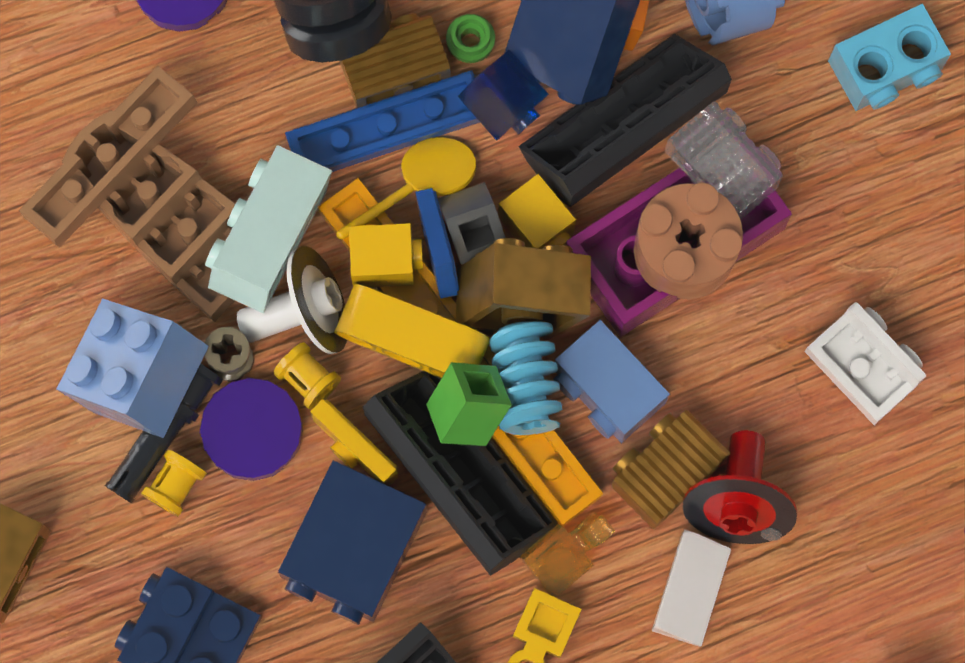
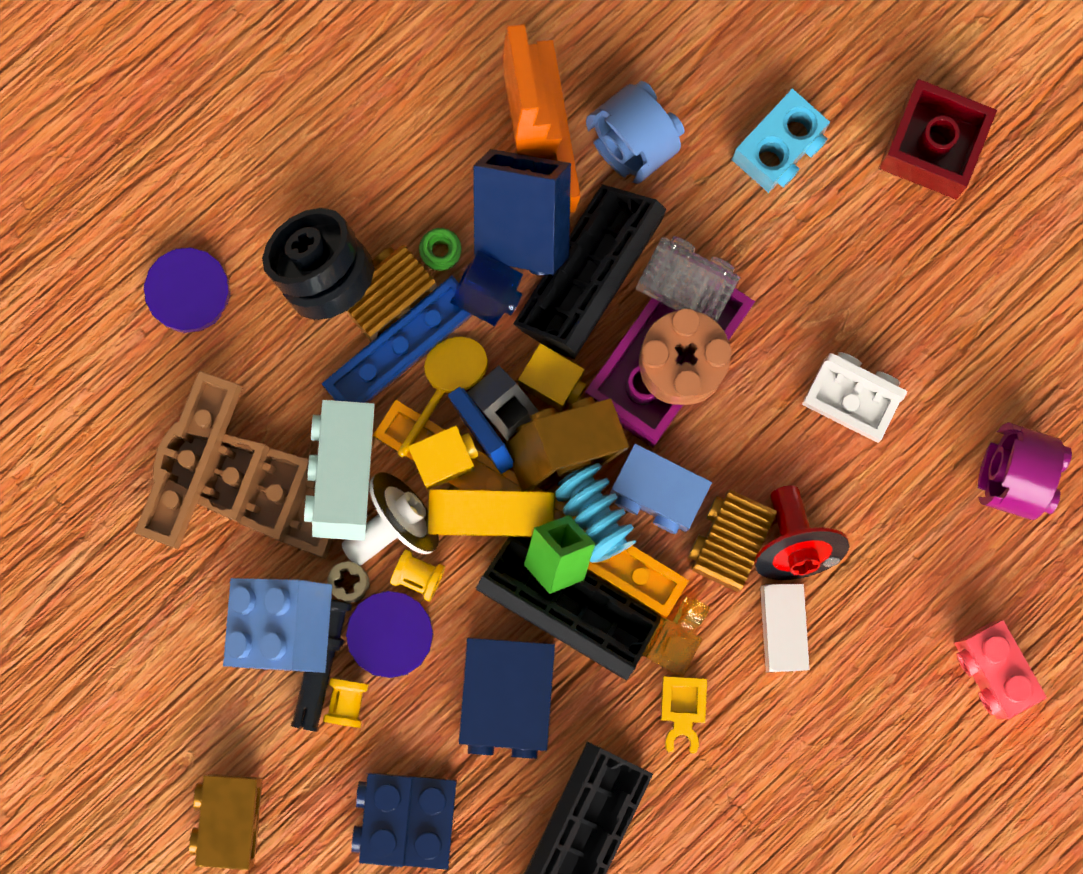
camera: 25 degrees left, 5 degrees up
(352, 445) = (476, 618): yellow plate -> none

